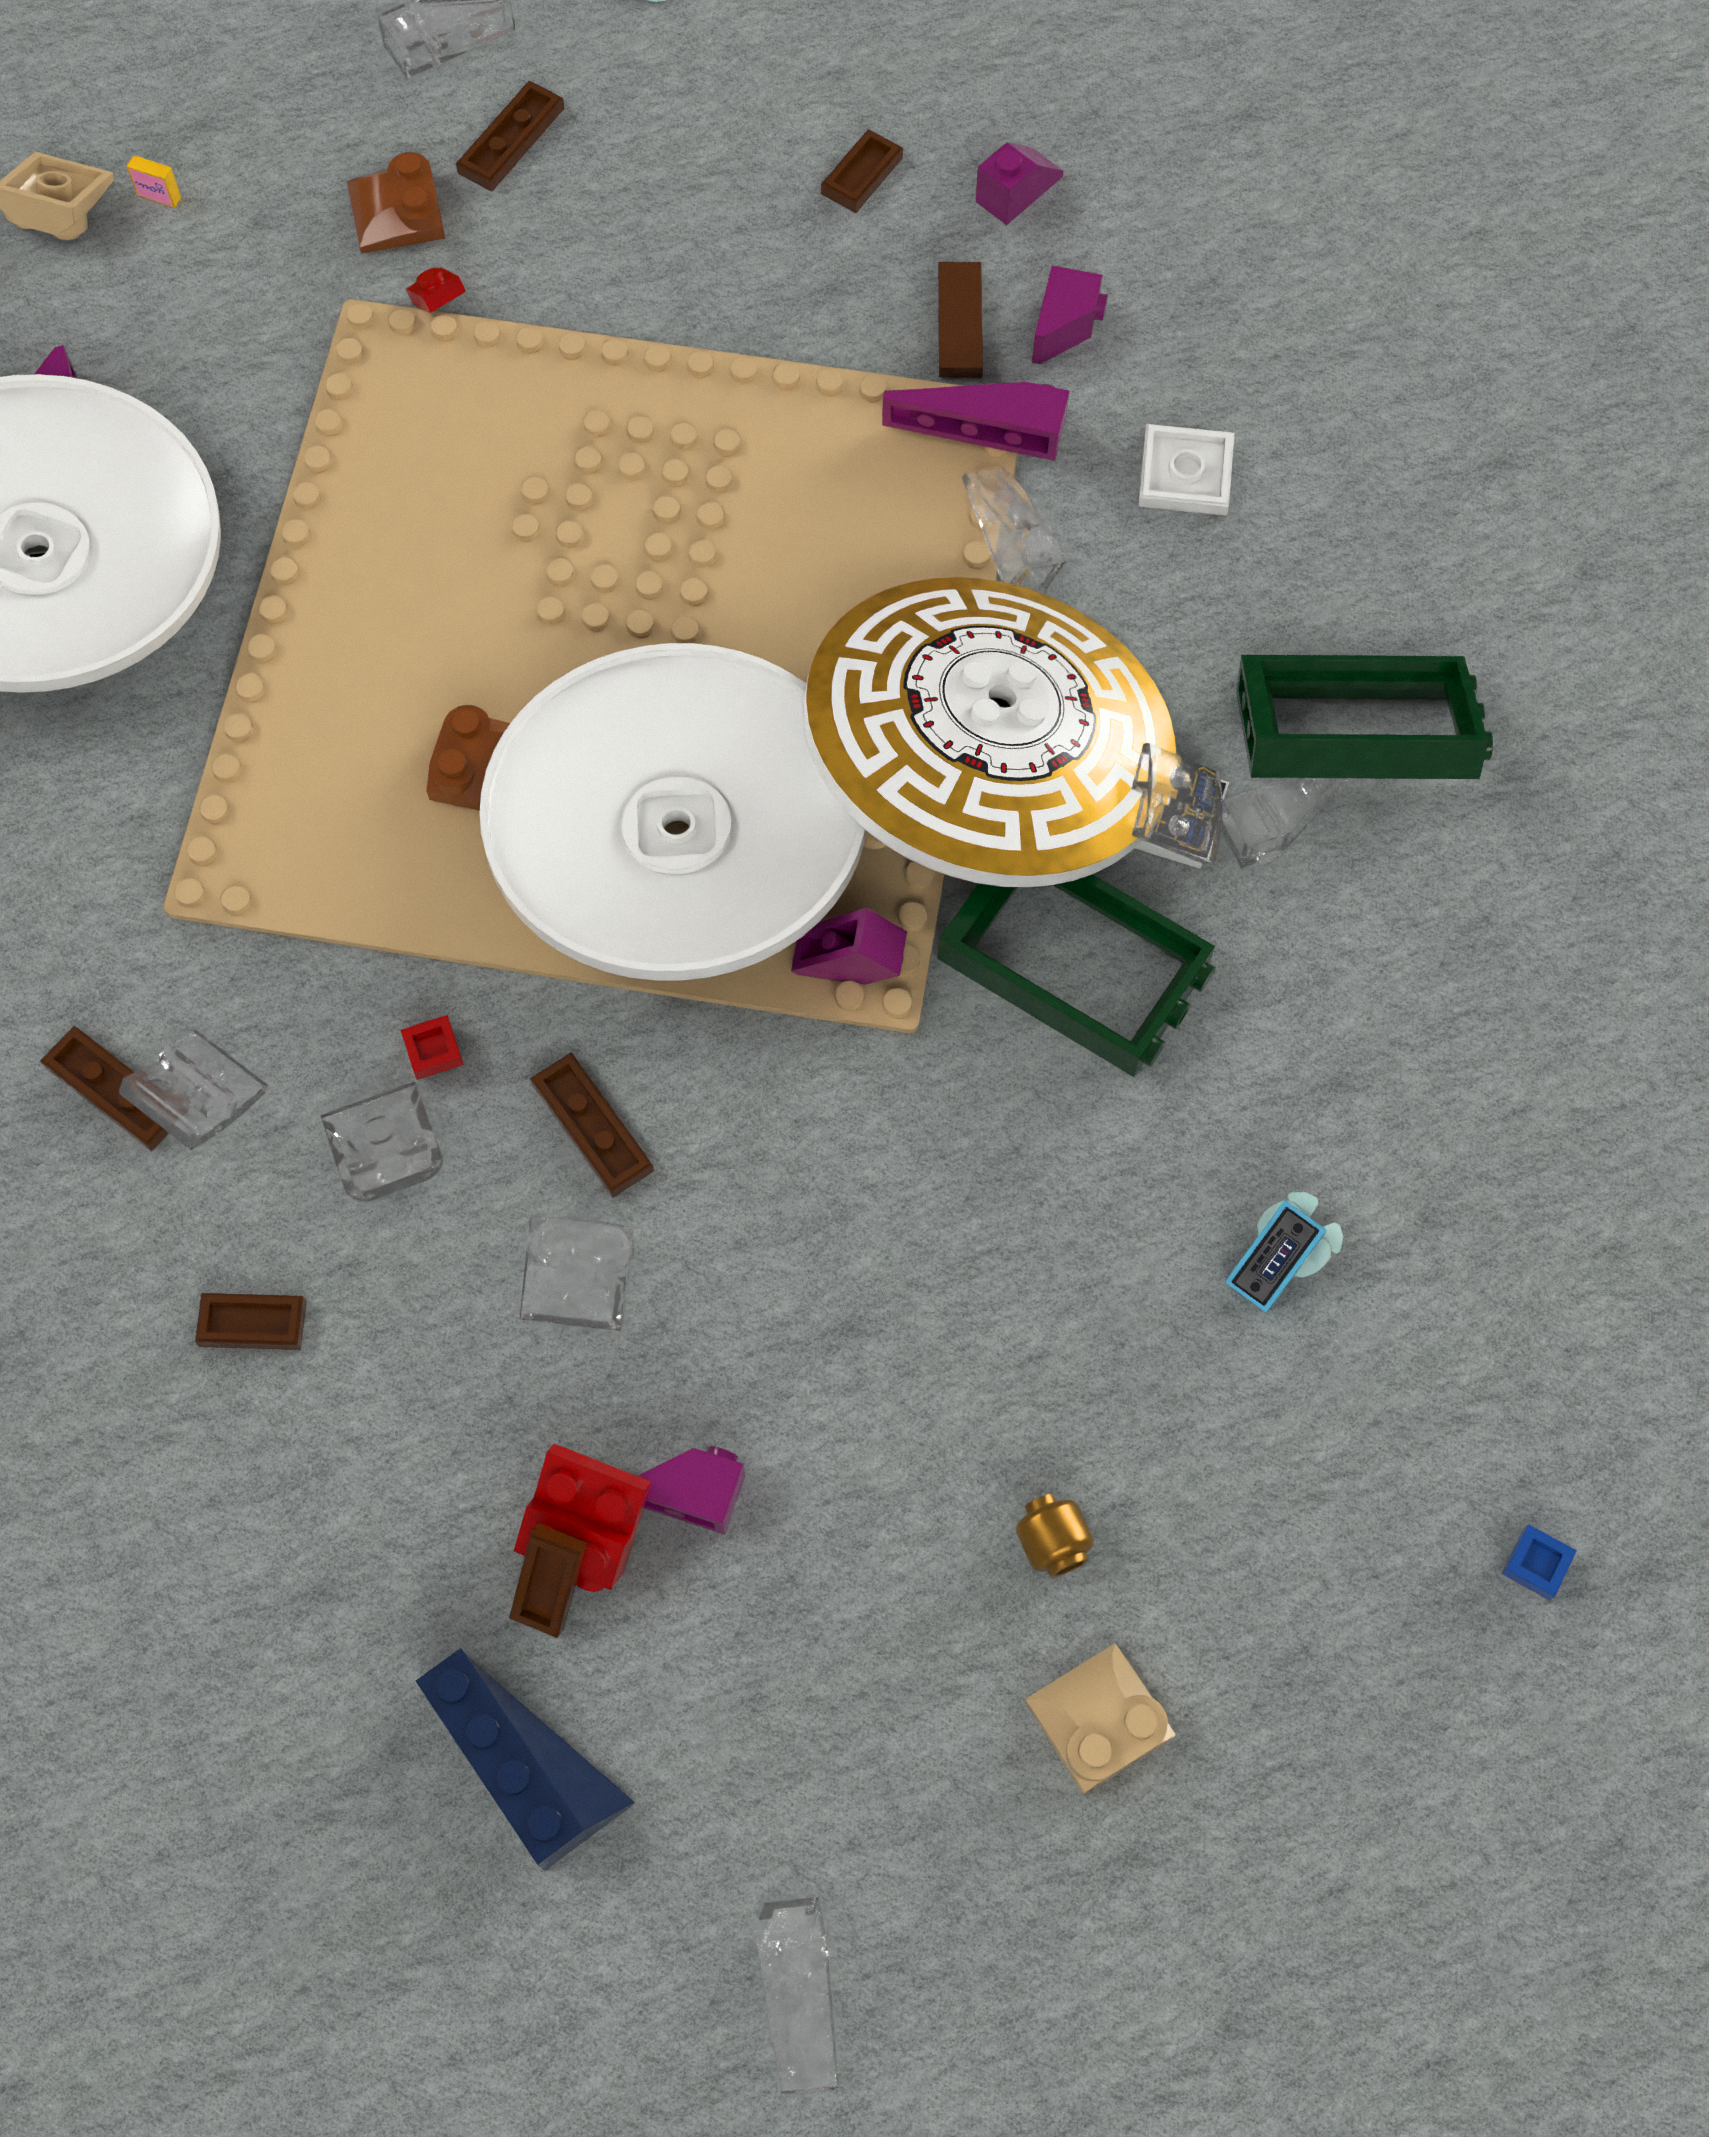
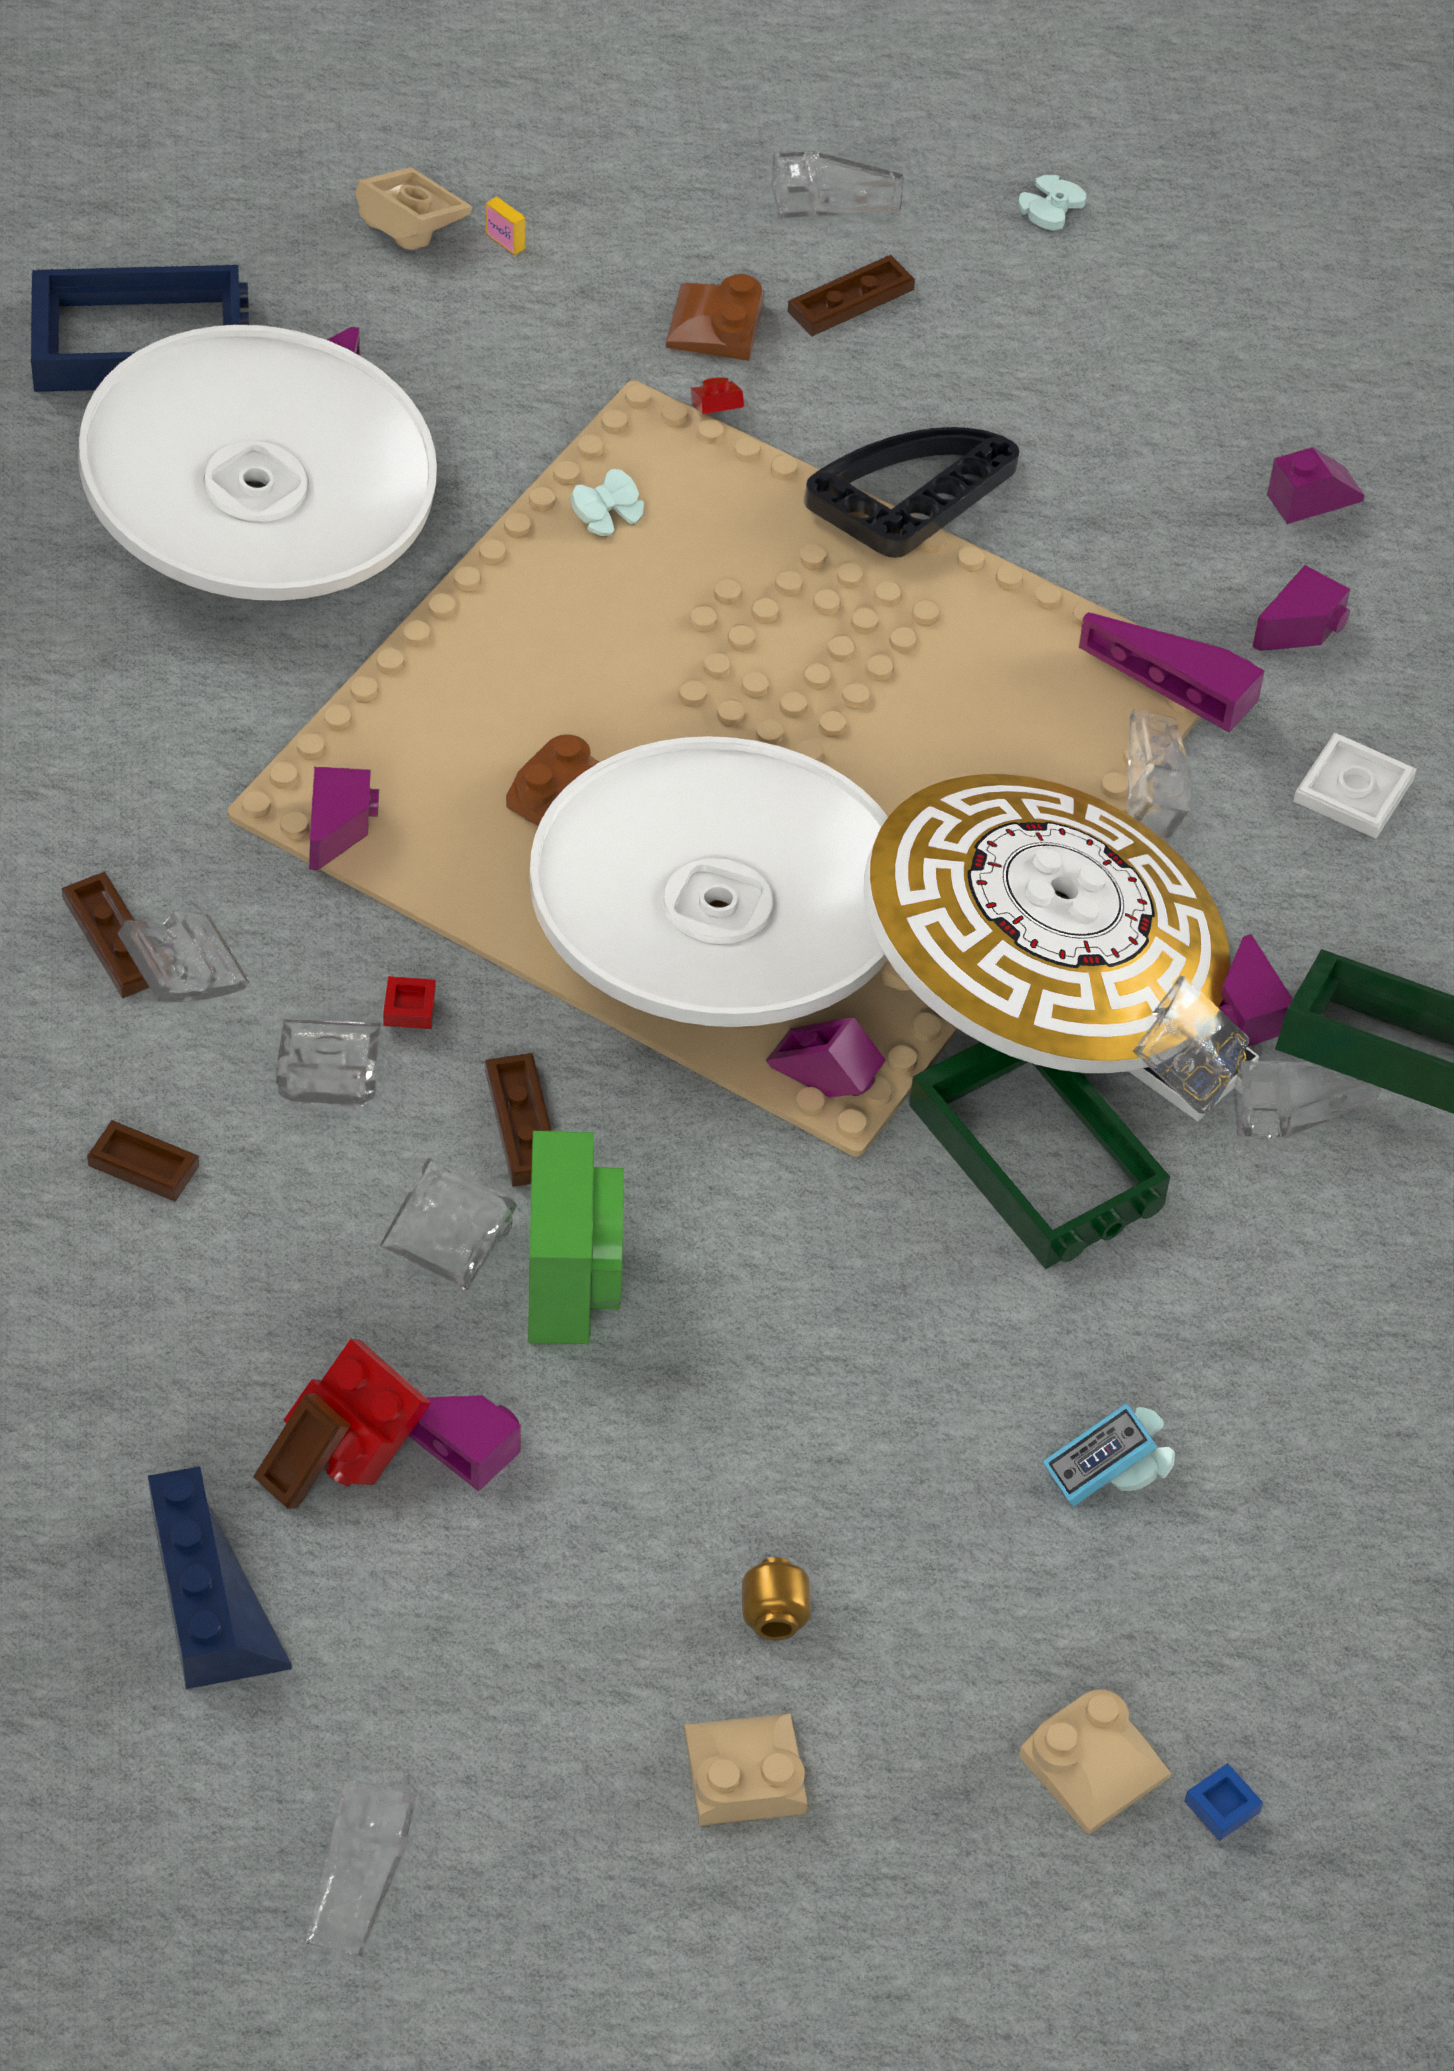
camera: 20 degrees right, 15 degrees down
(276, 873) = (339, 812): none -> magenta slope
(385, 428) = (616, 492): none -> light aqua piece
(652, 365) = (833, 497): none -> black beam
(707, 1248) = (572, 1237): none -> bright green container
(862, 171) = (1169, 432): reddish brown tile -> none
(960, 319) = (1199, 586): reddish brown tile -> none
(1200, 722) = (1254, 994): none -> magenta slope
(1406, 1569) = (1093, 1759): none -> tan slope

